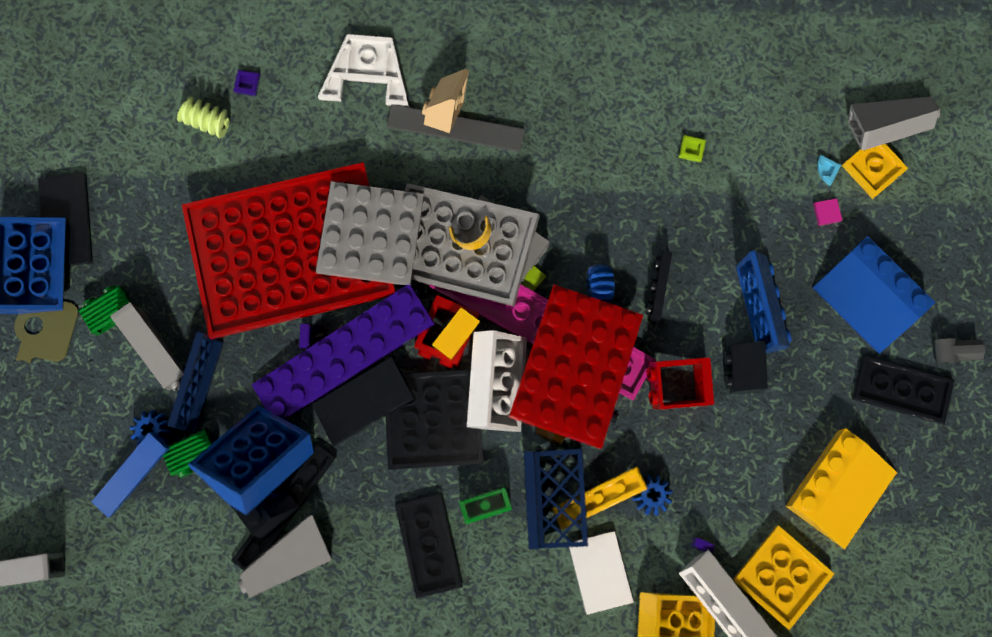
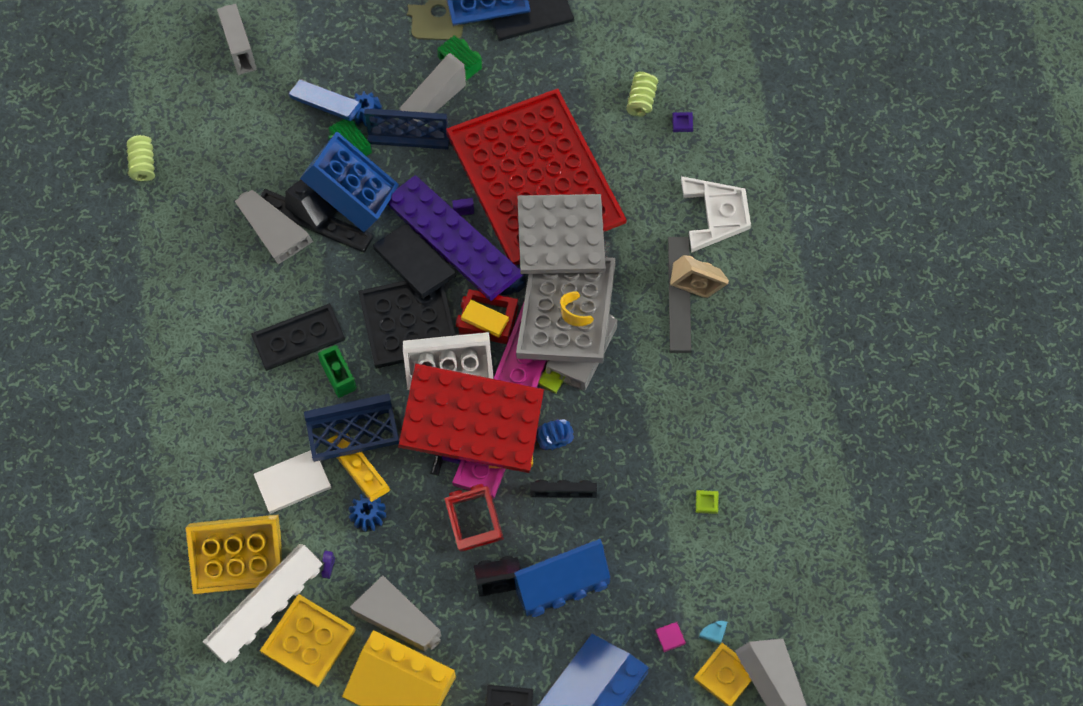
camera: 85 degrees right, 15 degrees down
(768, 482) = (392, 612): none -> light grey slope

